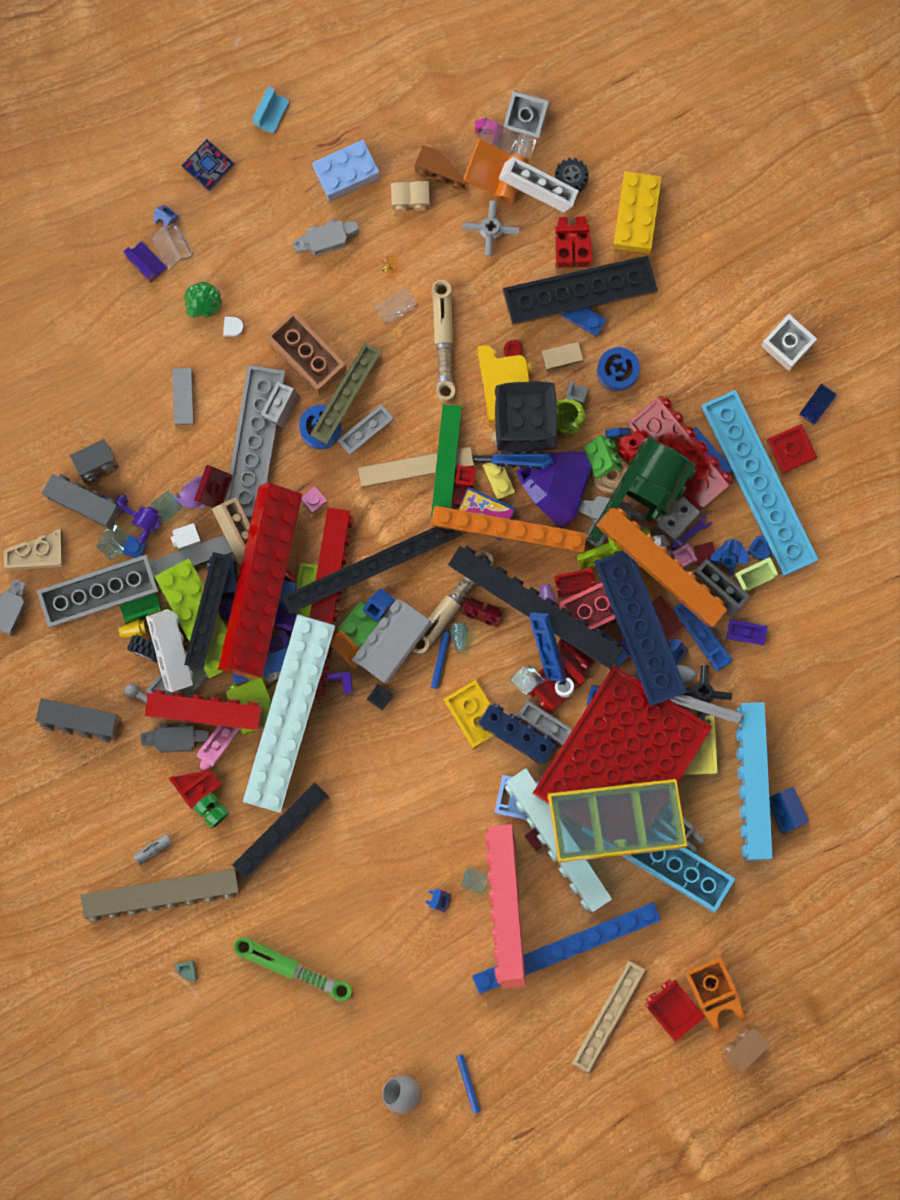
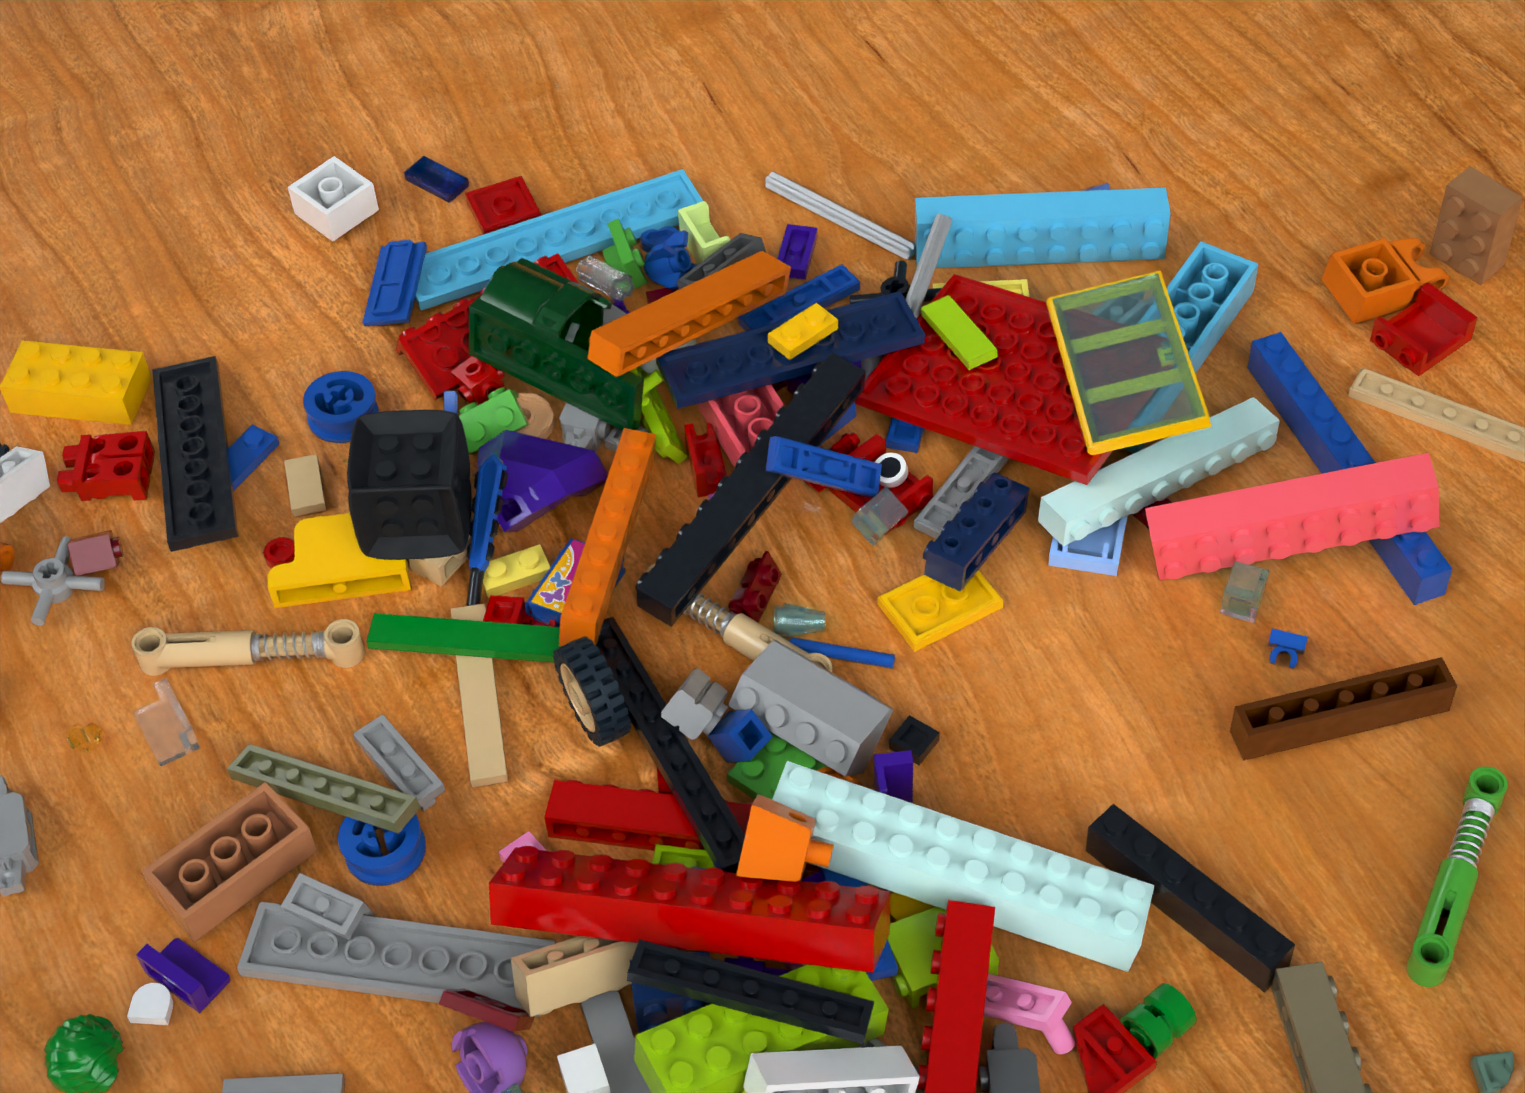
camera: 90 degrees left, 30 degrees down
(249, 339) = (184, 973): none -> dark purple panel
(283, 623) = (780, 843): none -> orange torso
(391, 923) = (1342, 708): none -> reddish brown brick
(394, 581) = (696, 705): none -> light grey brick
(399, 526) = (592, 691): none -> black wheel
(507, 247) = (95, 552): none -> brick
(647, 633) = (802, 331): none -> yellow plate
(655, 726) = (959, 332): none -> lime tile
(717, 389) = (395, 283): none -> blue piece
(719, 515) = (605, 278): none -> clear axle
(735, 526) = (623, 254): none -> bright green bracket
(782, 658) = (840, 215): none -> axle

